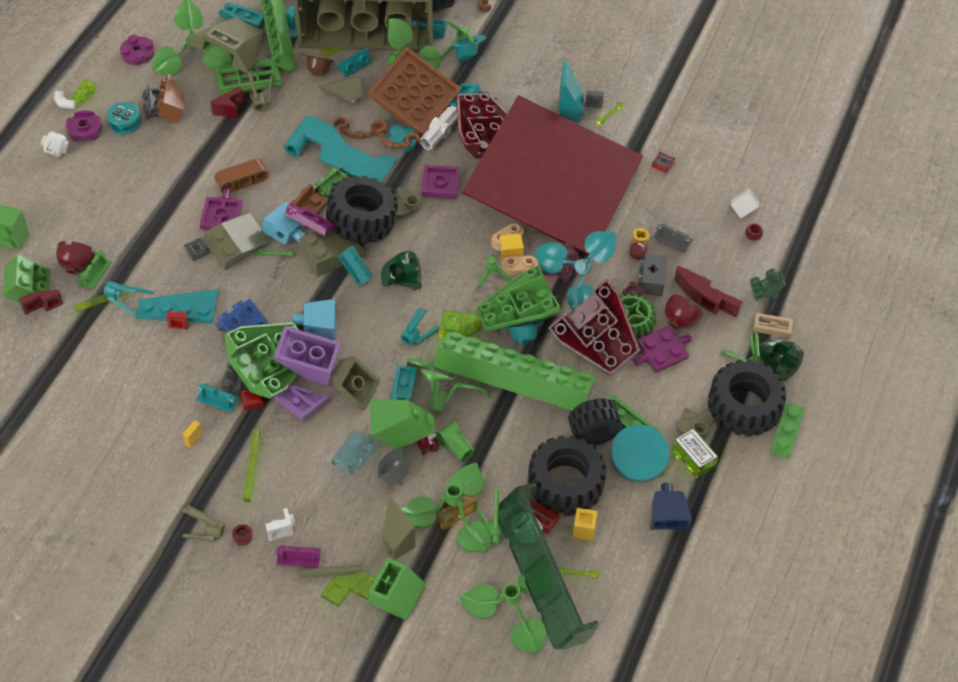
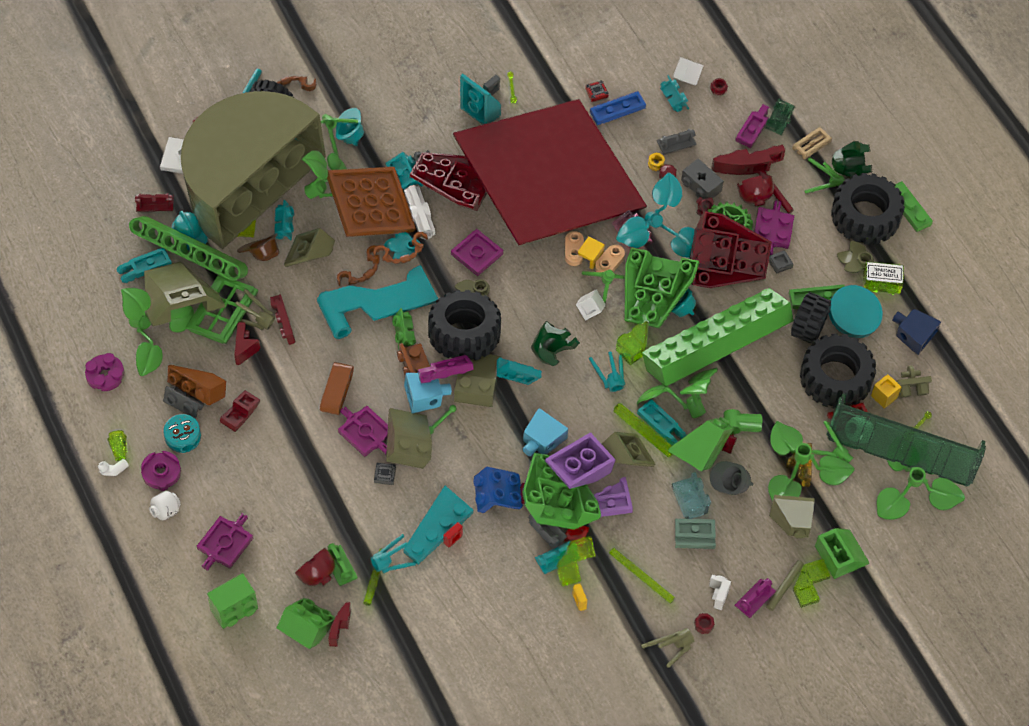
camera: 50 degrees left, 5 degrees up
(55, 195) = (225, 542): none -> magenta plate
(179, 137) = (241, 410): none -> dark red slope
(212, 407) = (568, 566): none -> clear neon green tile
(270, 112) = (282, 317): none -> dark red hinge
(321, 475) = (695, 533): none -> sand green plate
(387, 375) = (643, 429): none -> clear neon green axle
(465, 276) = (590, 304): none -> white panel
(619, 546) = (921, 383): none -> olive hips
(636, 374) = (780, 261): none -> dark grey tile
(661, 183) = (617, 108): none -> blue plate
(699, 330) = (779, 196): none -> dark red bar
(714, 209) = (671, 88): none -> teal hinge
(740, 275) = (753, 127): none -> magenta hinge

